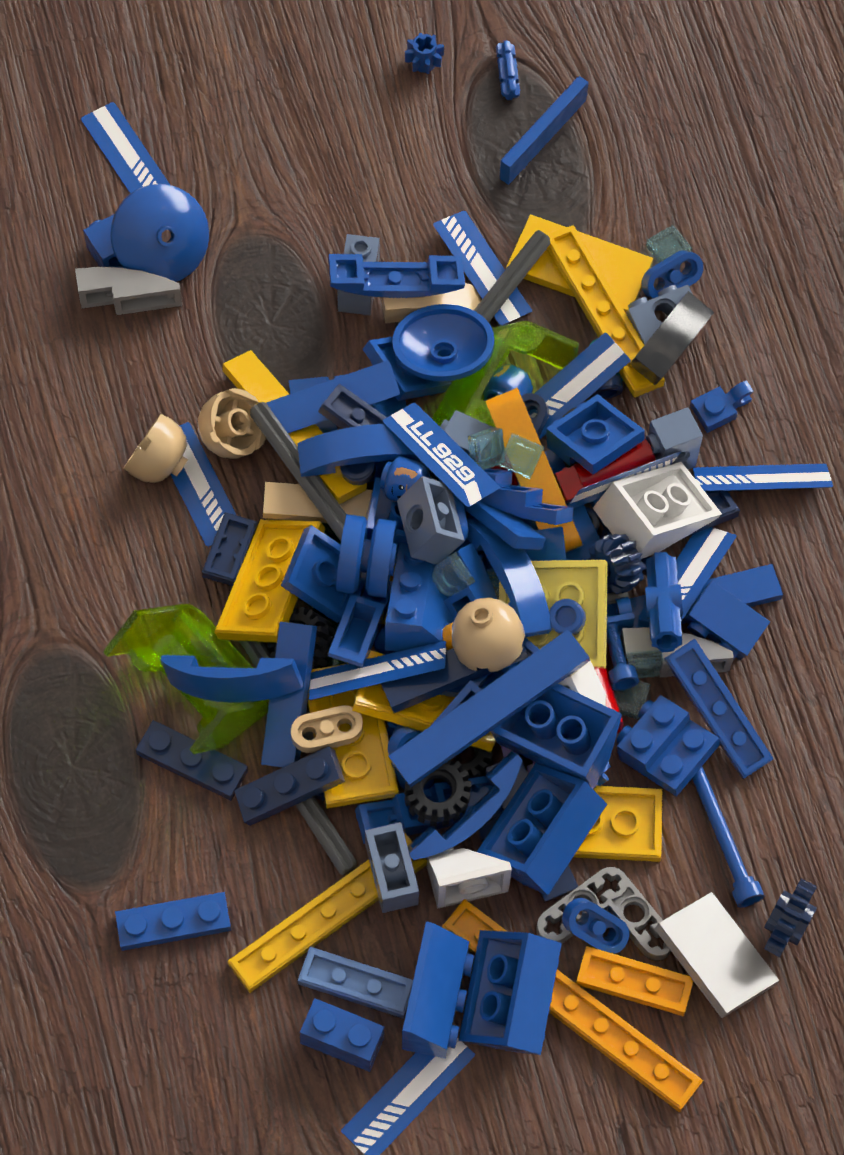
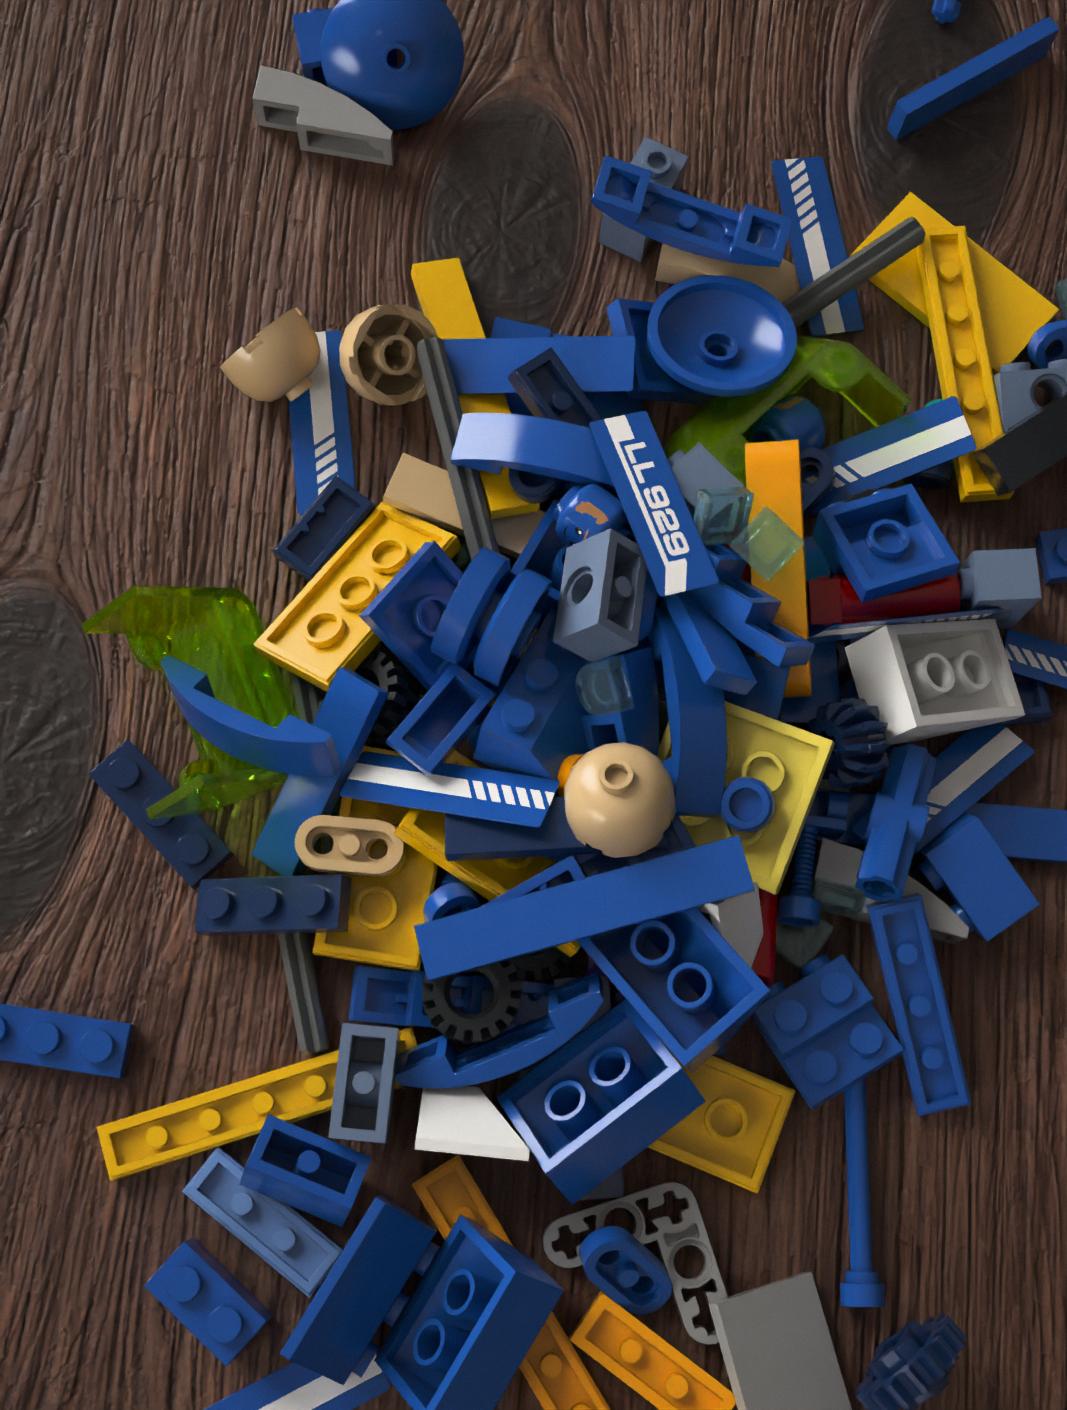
camera: 15 degrees right, 10 degrees up
(373, 935) = (305, 1170): none -> blue brick

